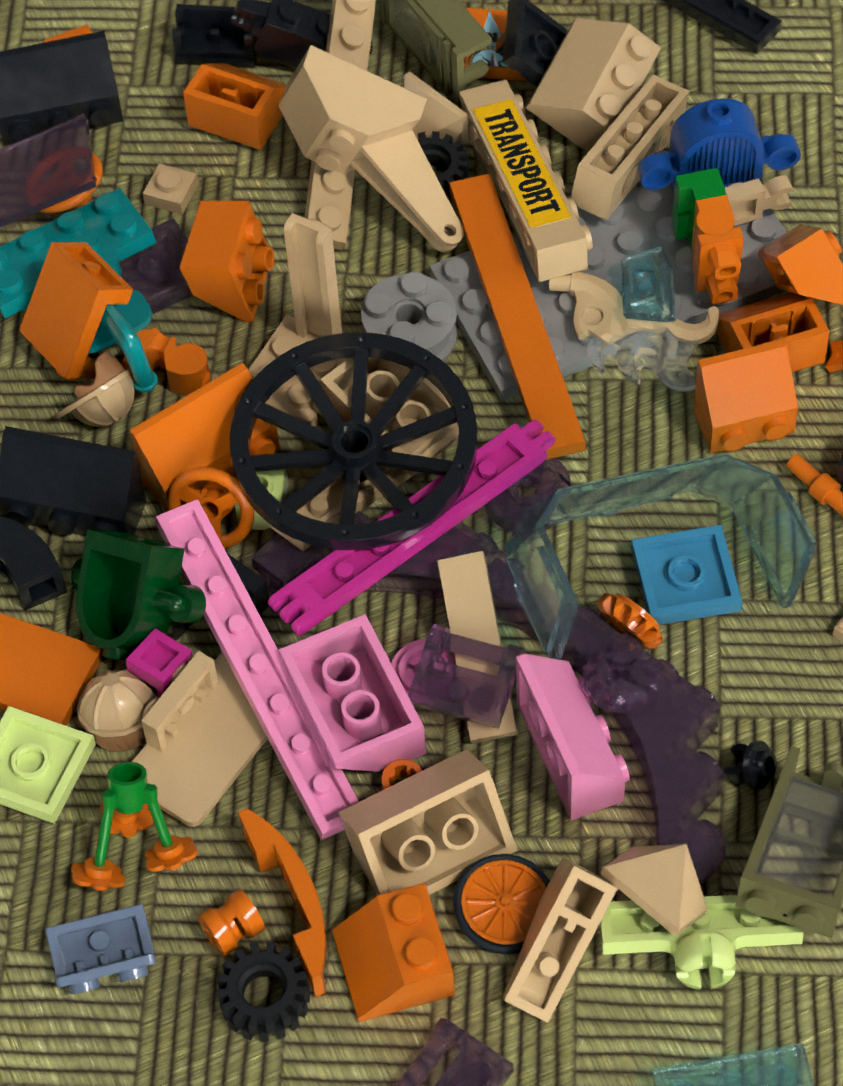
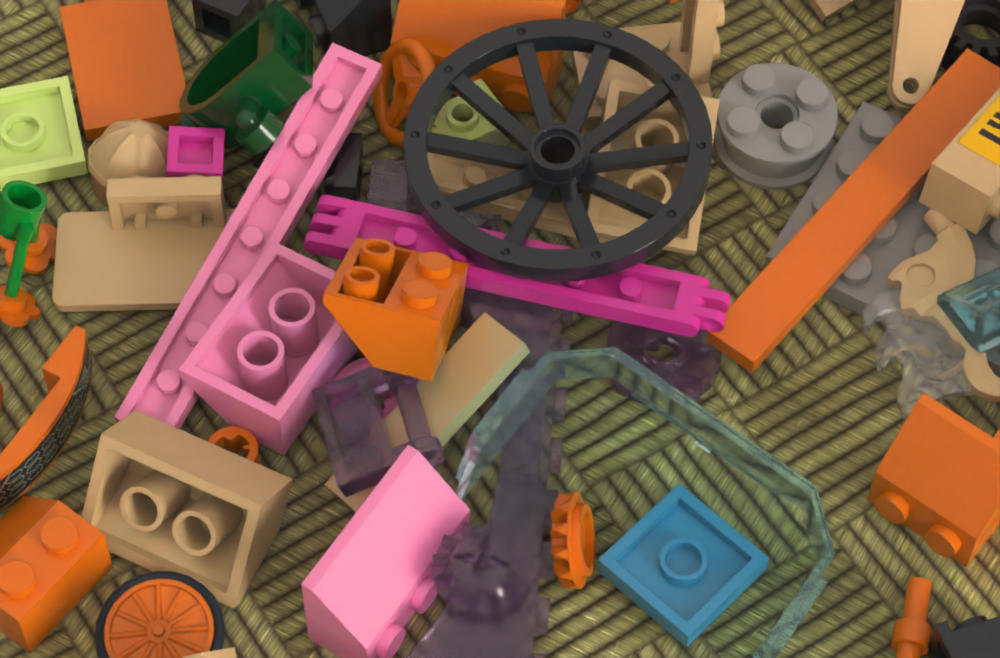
camera: 50 degrees right, 0 degrees up
(403, 598) = (398, 304): none -> orange slope

